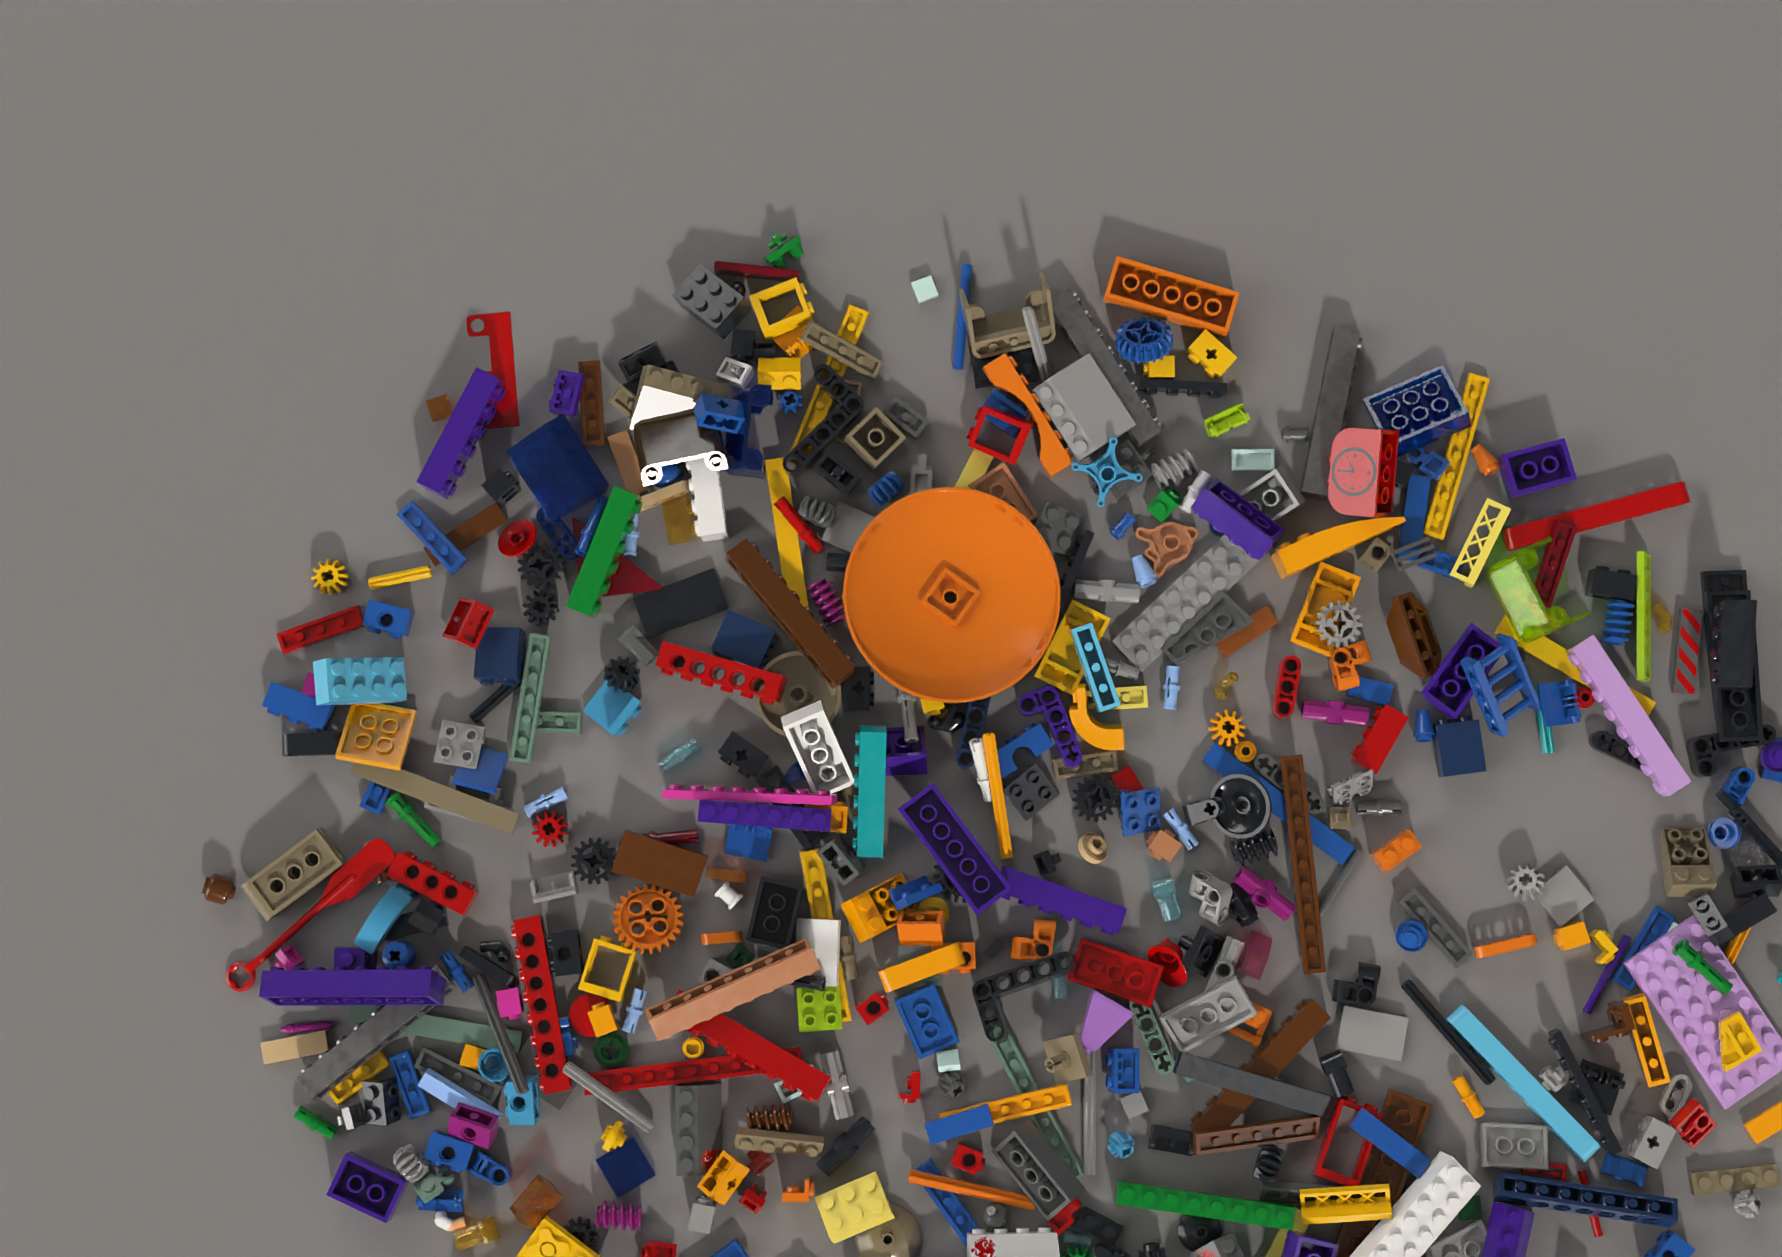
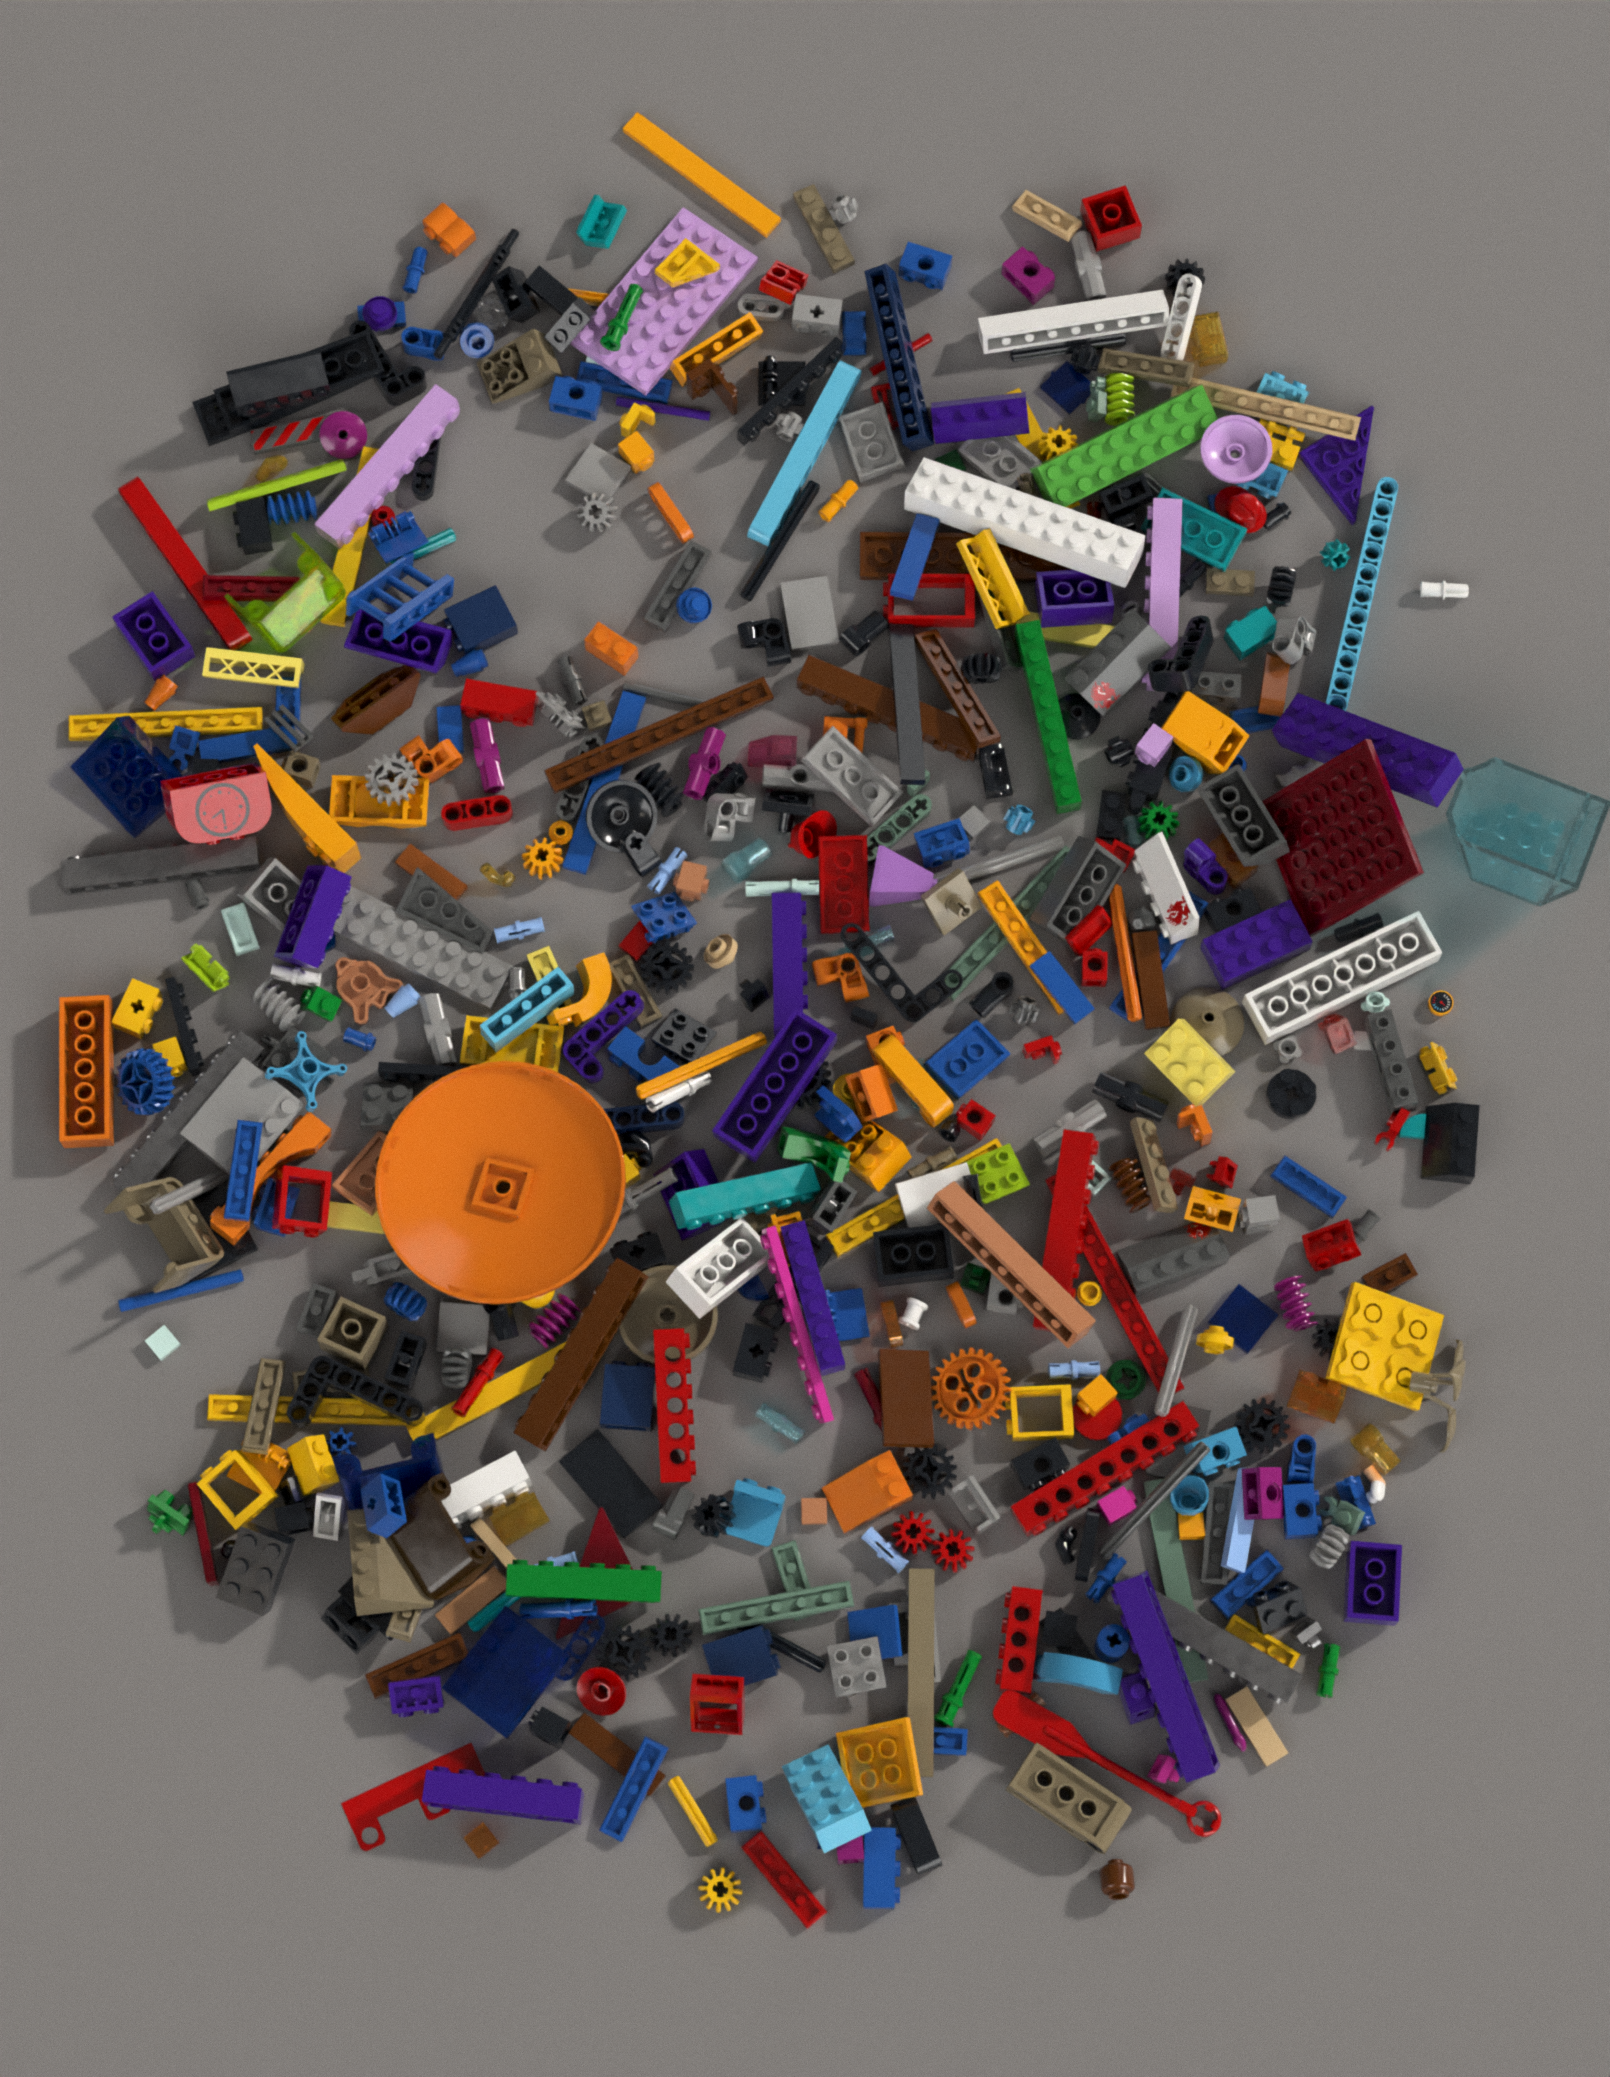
camera: 110 degrees left, 10 degrees down
(524, 847) = (961, 1546): none -> red gear
(529, 1161) = (1259, 1415): none -> black gear
(596, 805) = (867, 1492): none -> orange slope
(598, 756) = (814, 1511): none -> nougat tile
(612, 471) = (490, 1612): none -> teal axle
(870, 983) = (949, 1131): none -> black hinge
(892, 866) = (814, 1148): none -> green arch
(939, 1202) = (1150, 980): none -> reddish brown tile
(948, 1060) = (1000, 1022): light aqua tile -> none
(973, 1060) = (991, 996): none -> black piece
(1002, 1167) = (1089, 930): none -> red tile
(1037, 392) = (243, 1170): none -> blue tile
(1131, 920) = (766, 888): none -> light aqua pin
(1630, 907) = (584, 407): none -> blue brick
(1680, 696) = (346, 447): none -> magenta dish

